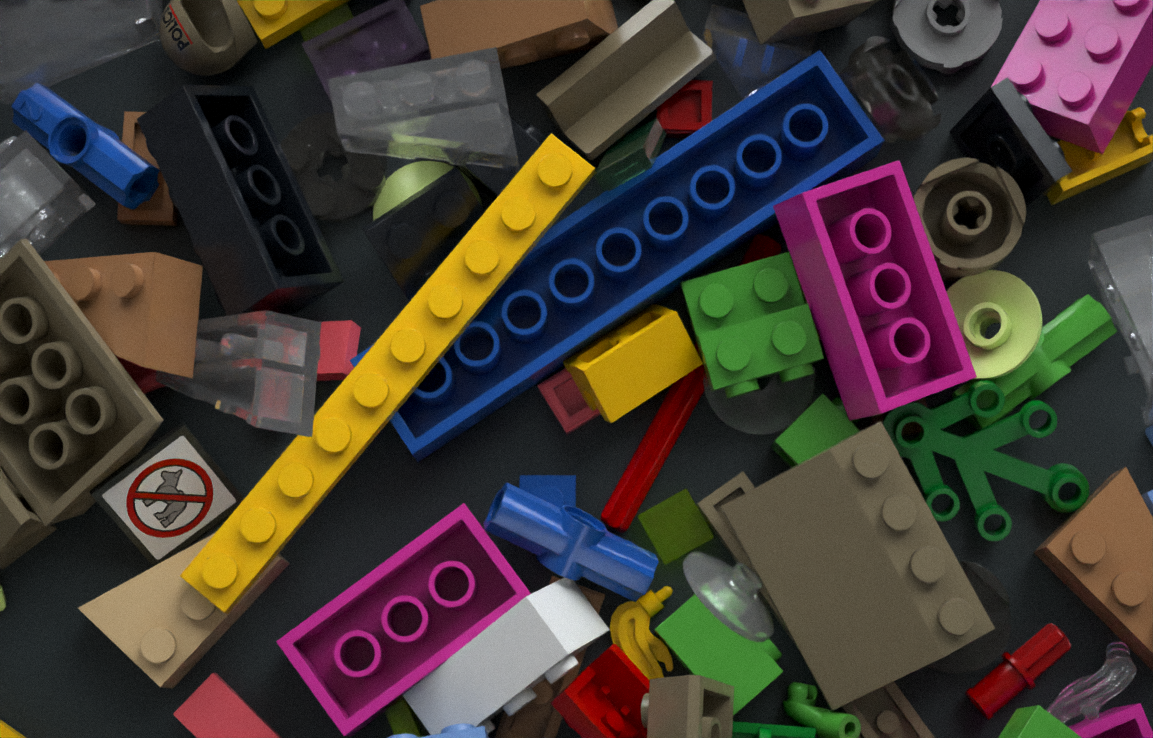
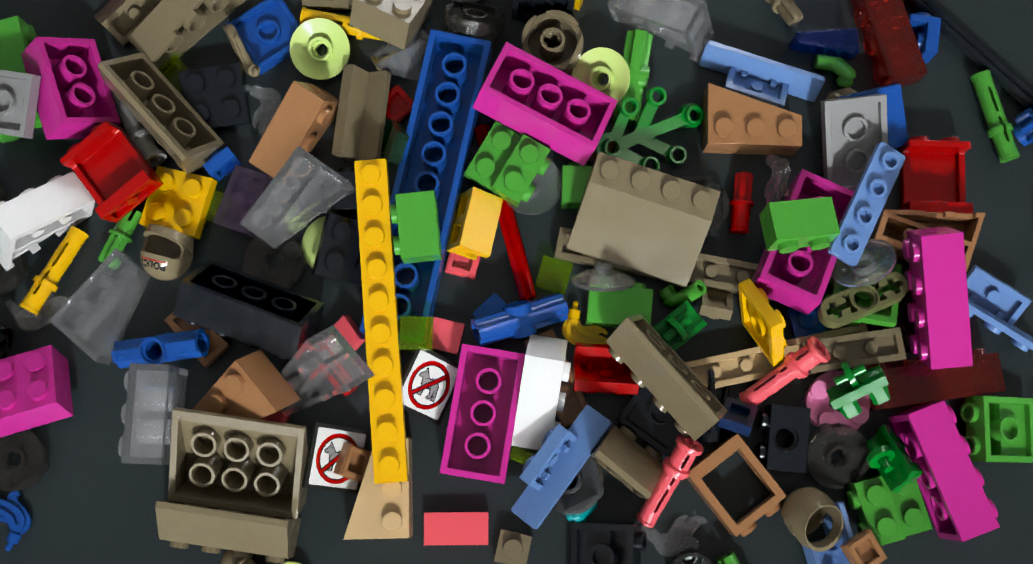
camera: 45 degrees left, 0 degrees up
(184, 520) = (352, 462): none -> medium nougat tile
(373, 512) = (428, 384): none -> piece
(417, 433) = (416, 333): none -> clear neon green tile
(458, 472) = (447, 335): none -> coral tile
(548, 296) = (417, 227): none -> bright green brick

